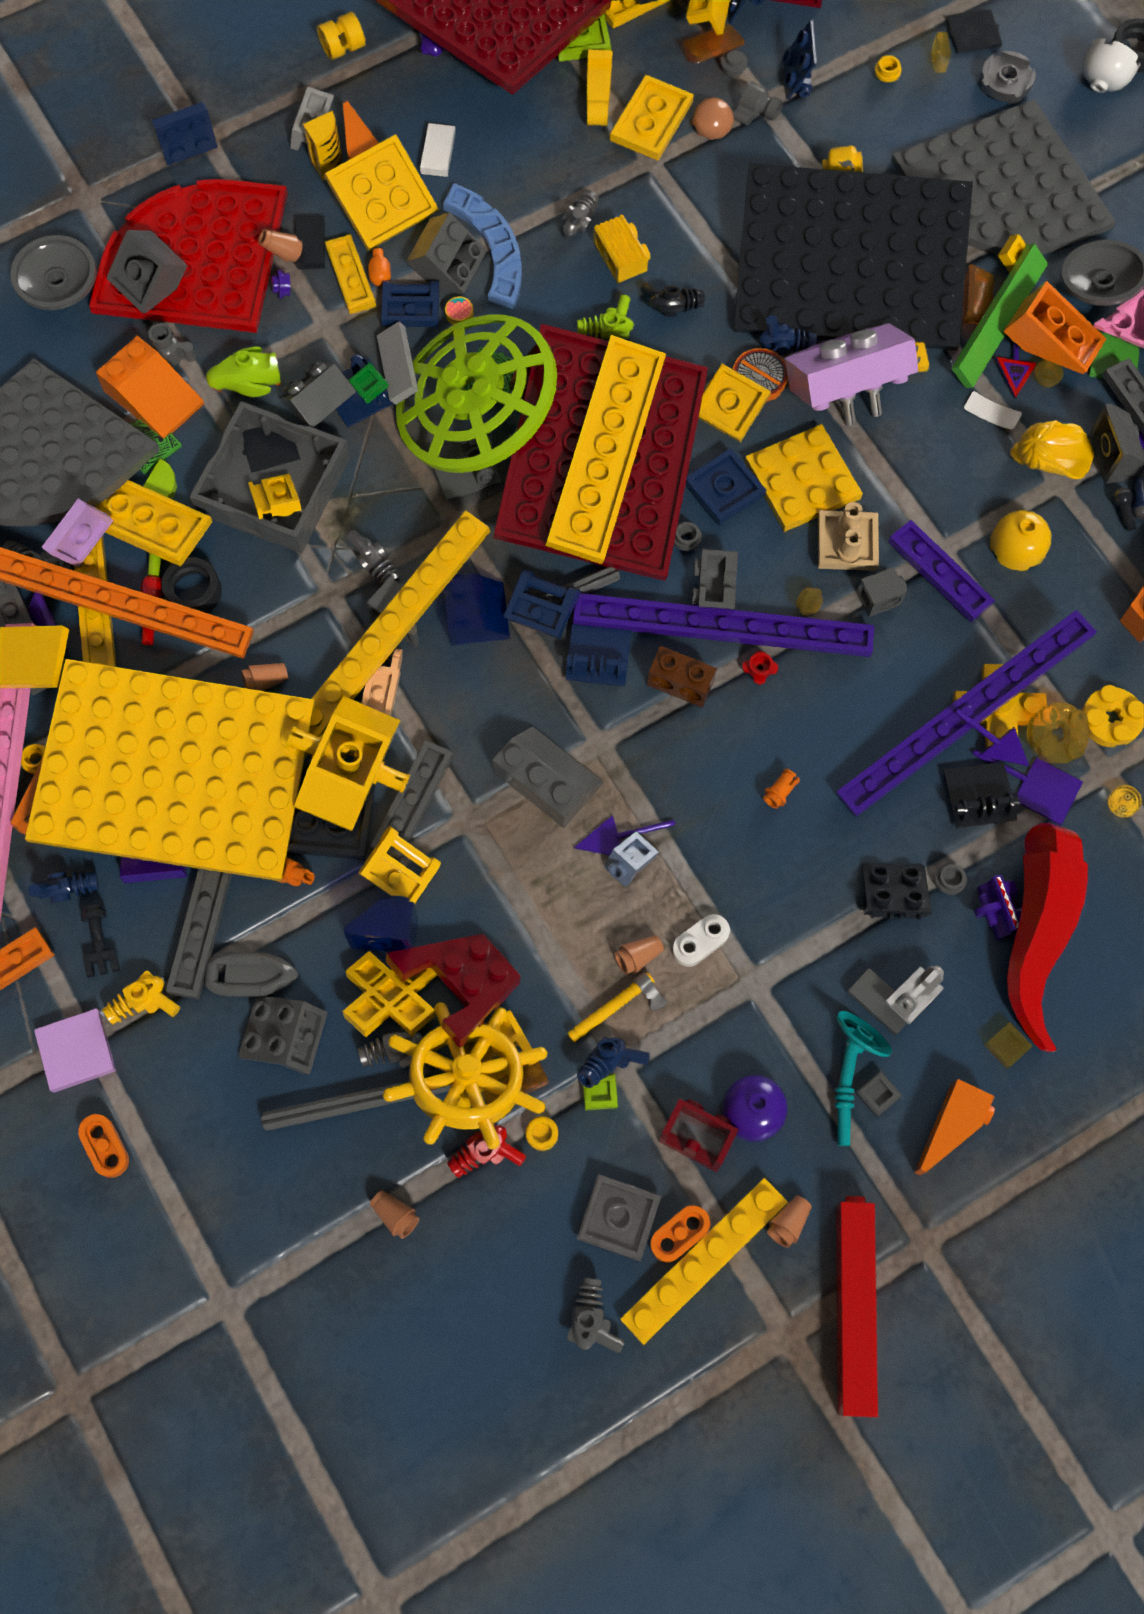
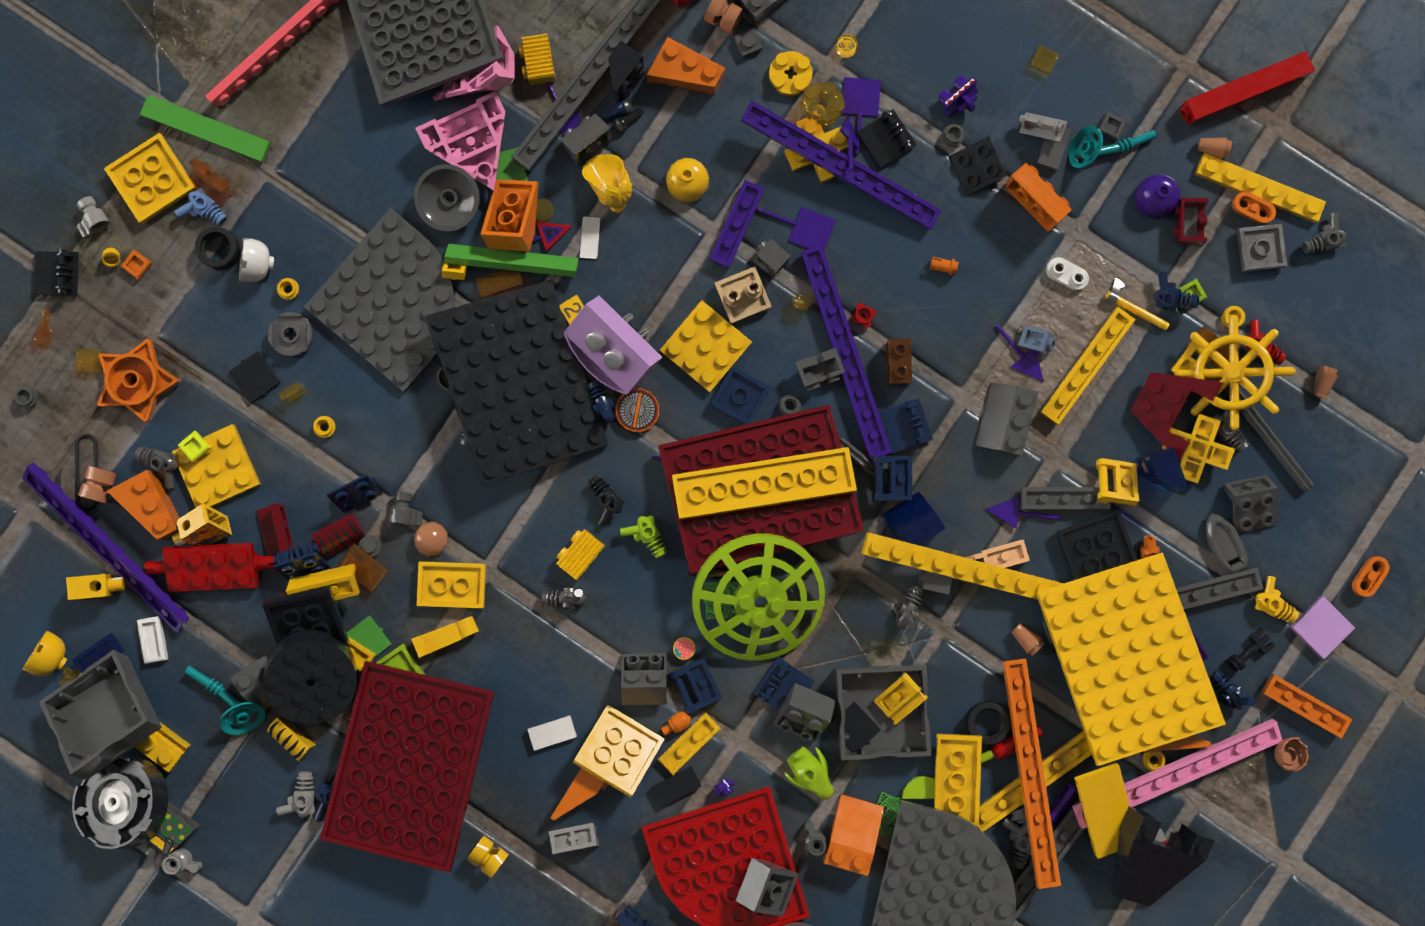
camera: 120 degrees left, 15 degrees up
(77, 533) = (1002, 812): lavender tile -> none
(281, 244) = (695, 800): nougat cone -> none
(323, 143) = (597, 814): yellow brick -> none
(339, 788) = (1047, 552): yellow slope -> none
(368, 383) = (784, 677): green tile -> none
(397, 363) = (752, 669): light grey tile -> none
(428, 728) = (1009, 512): none -> dark purple piece
(498, 238) = (608, 649): medium blue tile -> none
(568, 907) = (1087, 366): none -> yellow plate
(635, 30) = (370, 635): none -> bright green piece
(637, 954) = (1096, 307): nougat cone -> none
(732, 402) = (671, 418): yellow plate -> none
(760, 37) = (339, 535): none -> dark red brick
(823, 941) = (1037, 196): none -> orange slope
(844, 159) = (432, 423): yellow head -> none
(898, 657) = (809, 229): none -> dark purple piece
(960, 1116) = (1109, 71): orange slope -> none
(1050, 912) = (950, 63): red animal -> none
(1062, 93) = (282, 286): none -> yellow plate

